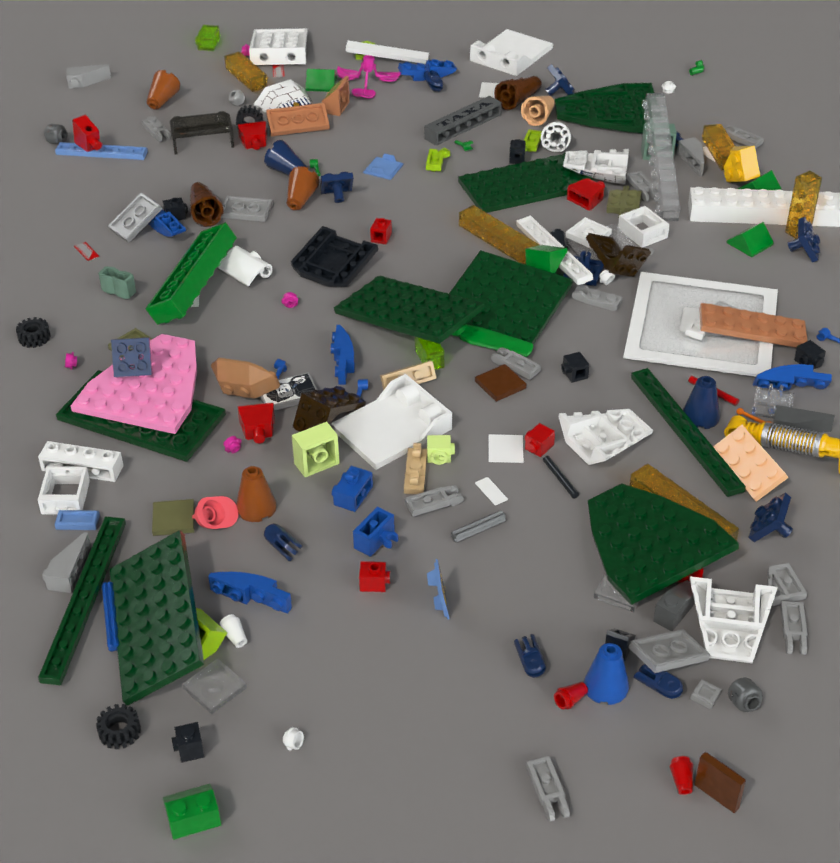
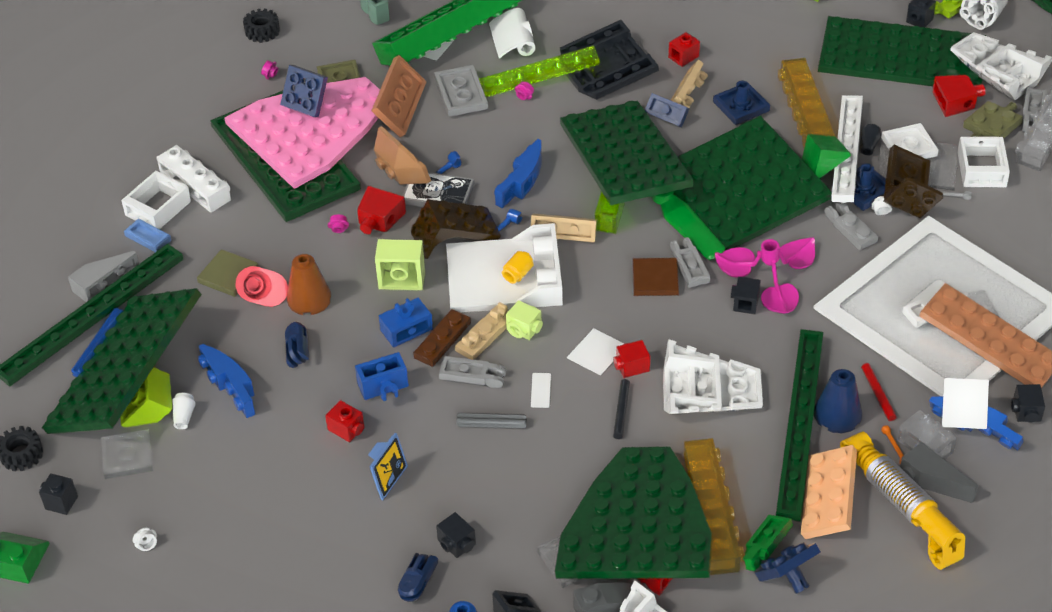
camera: 35 degrees right, 5 degrees up
(199, 336) = (399, 96): none -> nougat plate
(241, 317) = (461, 90): none -> light grey plate
(290, 282) = (540, 71): none -> clear neon green plate
(388, 488) = (442, 338): none -> reddish brown plate
(404, 414) = (517, 267): none -> yellow brick
(405, 254) = (692, 78): none -> tan plate
(407, 273) = (666, 110): none -> plate
(452, 249) = (742, 98): none -> dark blue plate
(532, 613) = (455, 535): none -> black brick
(578, 328) = (797, 254): none -> dark pink plant
(738, 511) = (766, 540): none -> green hinge
(782, 368) = (965, 403): none -> white sticker

